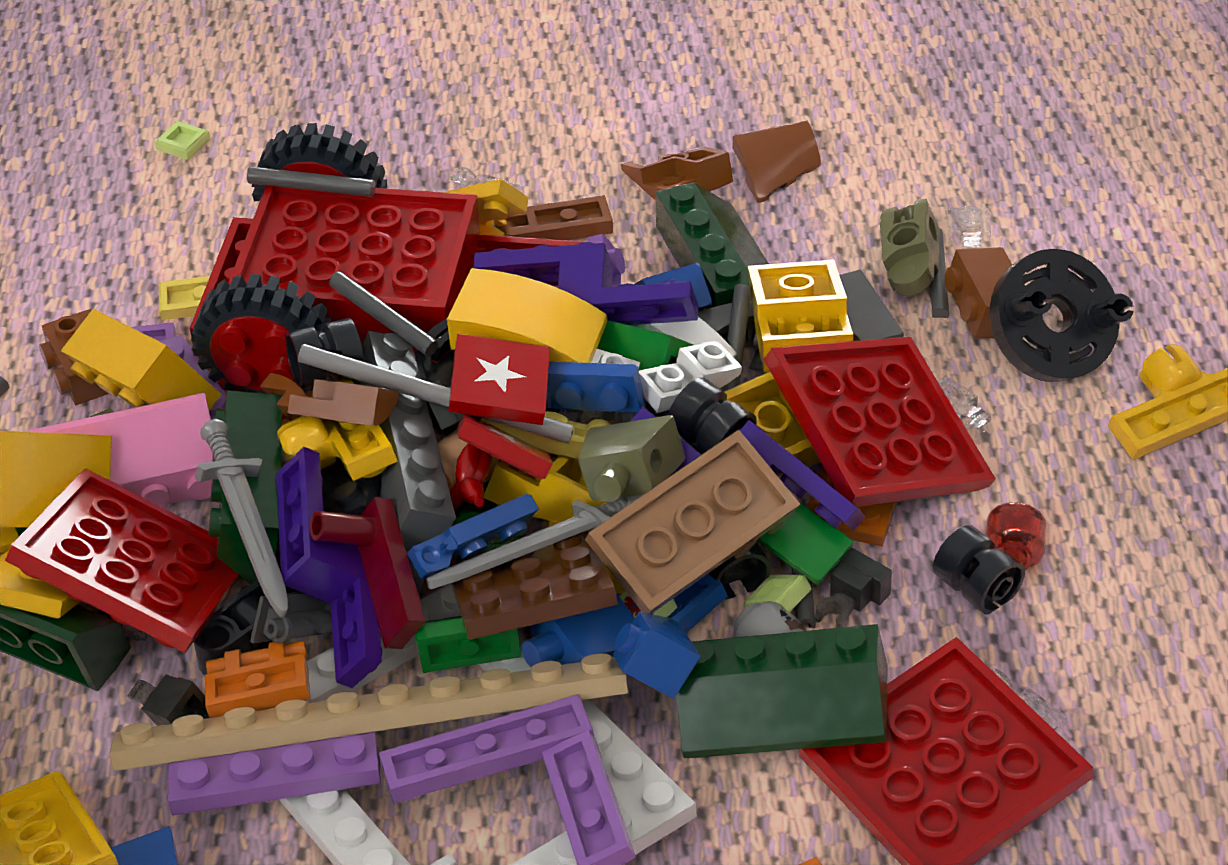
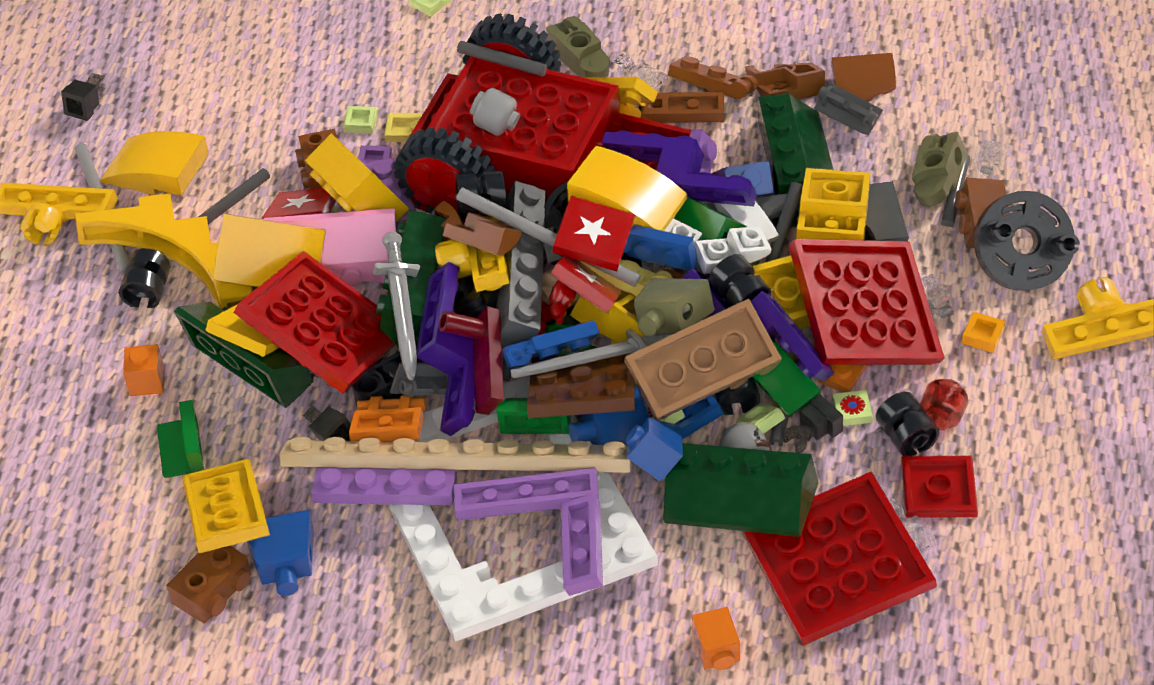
camera: 15 degrees right, 5 degrees up
(65, 408) = (300, 203): none -> red tile
(121, 296) = (360, 119): none -> yellowish green tile
(320, 245) = (494, 111): none -> light grey head
(383, 313) = (528, 169): dark grey bar -> none
(404, 164) = (579, 48): none -> olive piece
(585, 181) = (712, 77): none -> dark orange plate
(770, 194) = (847, 108): none -> dark grey hinge
(900, 557) = (853, 406): none -> yellowish green tile
(1035, 438) = (983, 332): none -> light orange plate
(1044, 645) = (939, 486): none -> red tile

